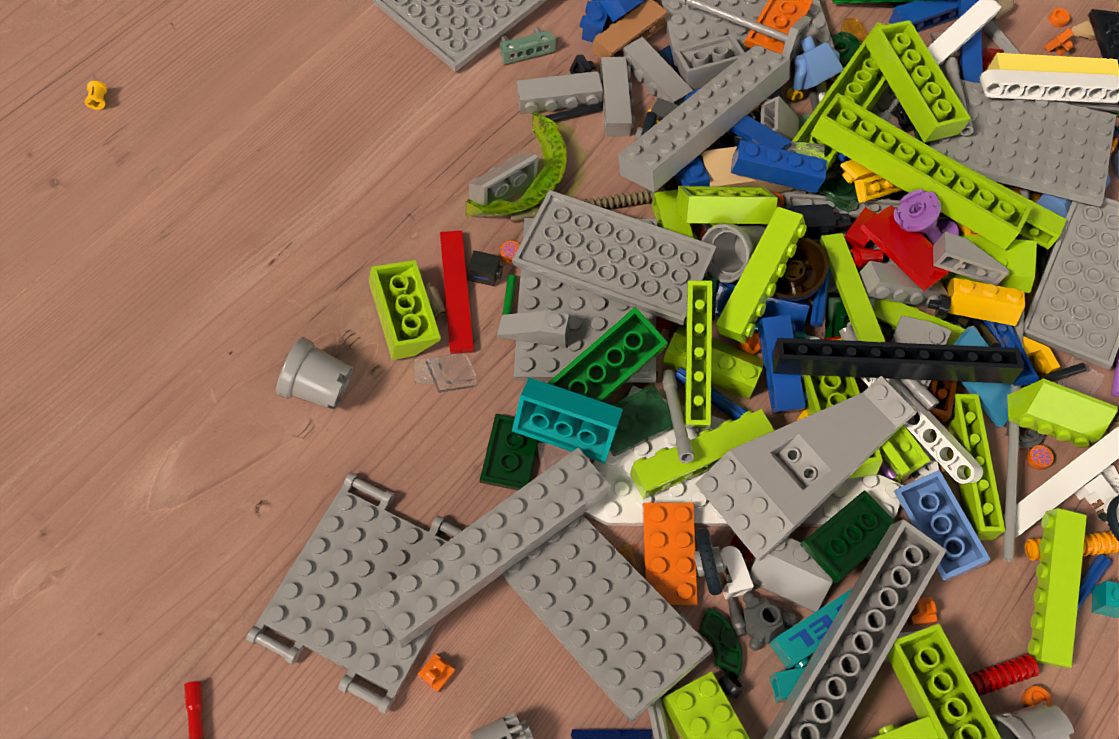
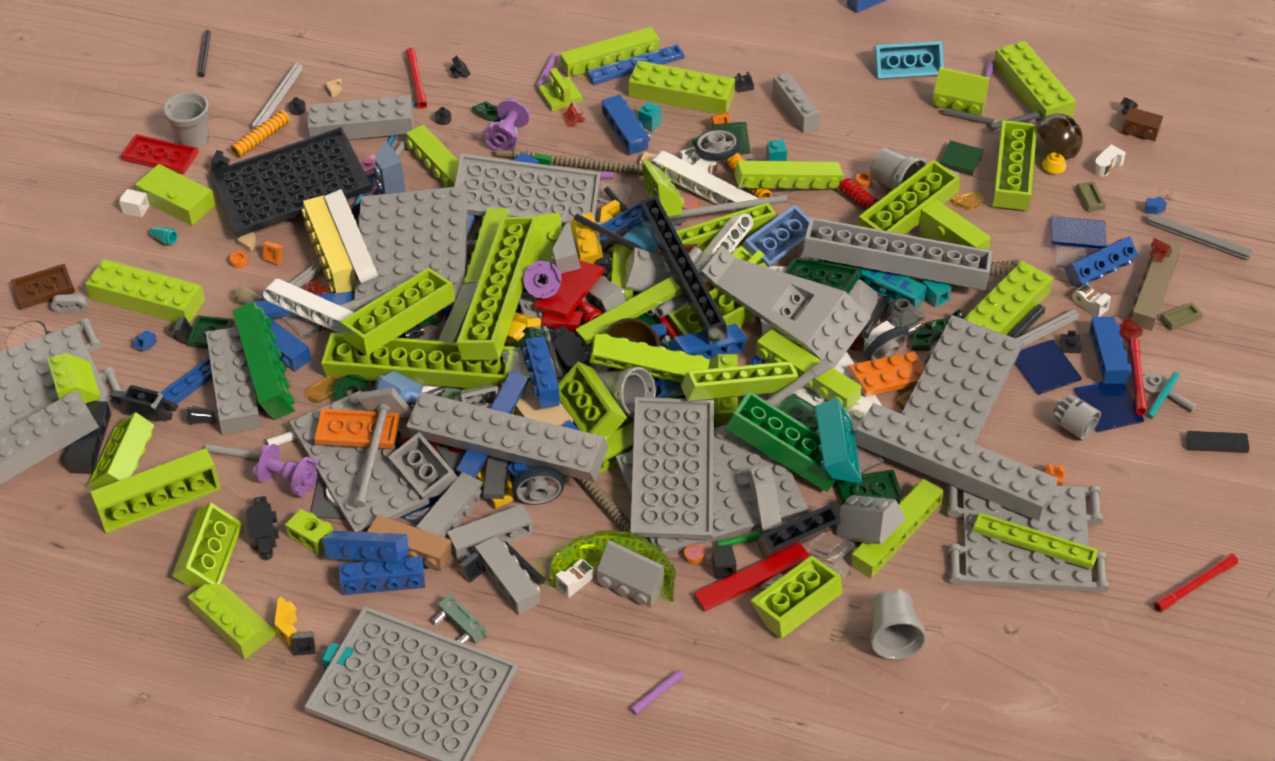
camera: 105 degrees left, 15 degrees down
(343, 585) = (1035, 540): none -> lime tile
(371, 161) = (657, 692): none -> medium lavender bar
(444, 452) = (916, 508): none -> lime brick
(456, 414) = (869, 519): none -> light grey slope
(482, 346) = (798, 531): none -> black brick
(529, 139) = (574, 577): none -> white leg
(765, 578) = (876, 316): none -> black bar
(983, 310) = (602, 230): none -> black bar

